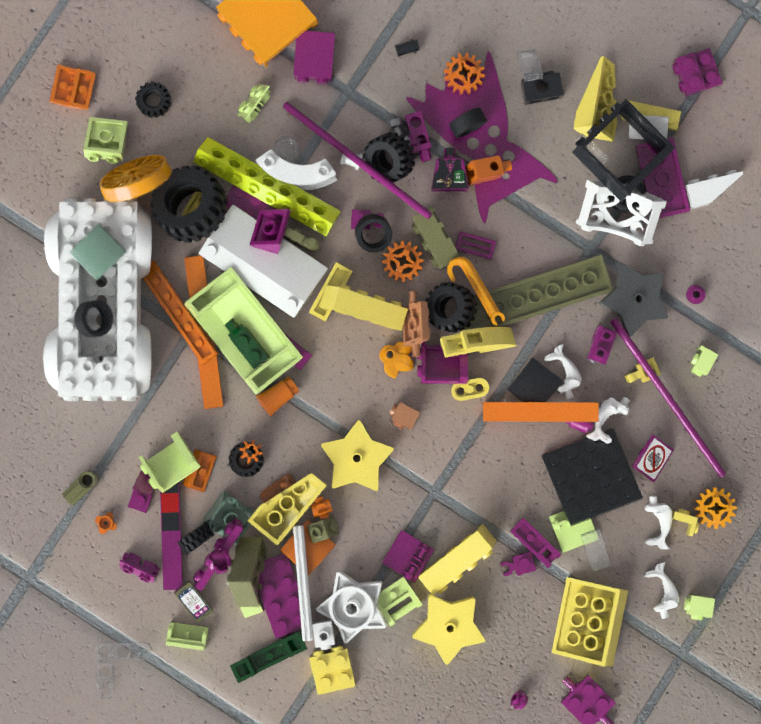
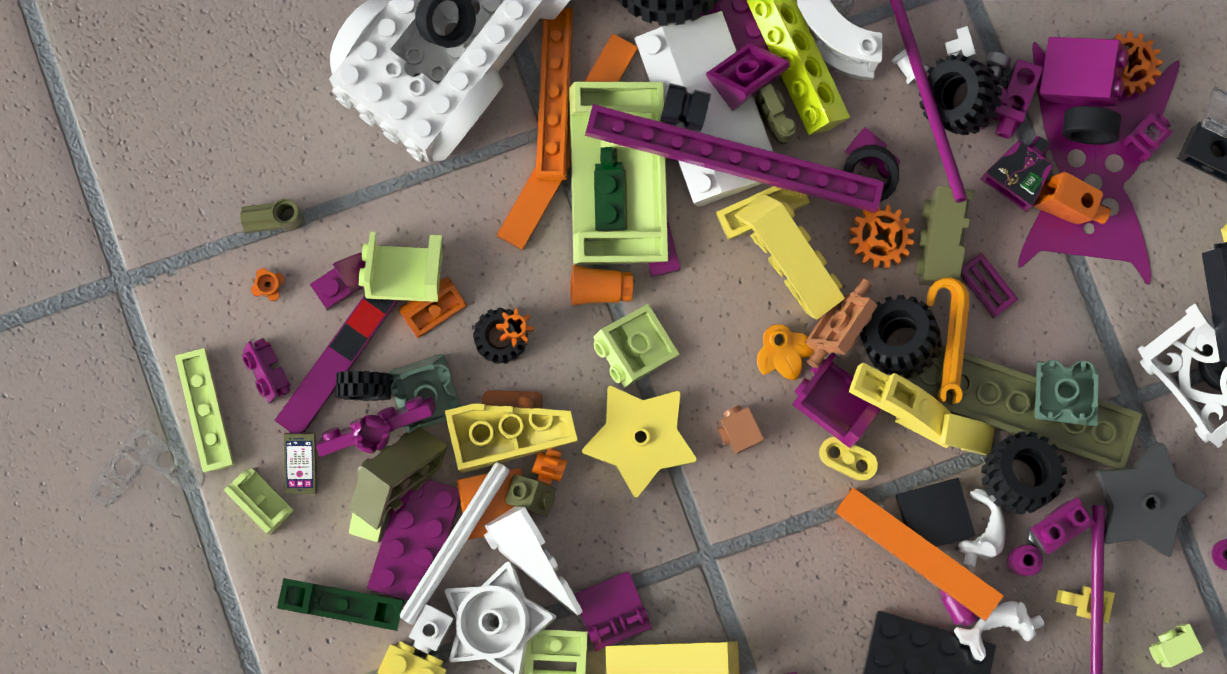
camera: 35 degrees right, 5 degrees down
(123, 611) = (204, 410): none -> yellowish green plate
(252, 272) = (685, 107): none -> black wheel
(297, 280) = (734, 158): none -> magenta plate
(318, 413) = (634, 346): none -> yellowish green plate
(335, 557) = (521, 543): none -> white wedge
(371, 128) = (962, 45): none -> white tile
(443, 97) = (1083, 71): none -> magenta brick
(501, 104) = (1149, 135): none -> magenta window
(521, 332) = (967, 434): none -> light yellow slope
(556, 273) = (1067, 392): none -> sand green slope
(567, 316) = (1039, 457): none -> black tyre
(591, 377) = (1016, 564): none -> magenta brick

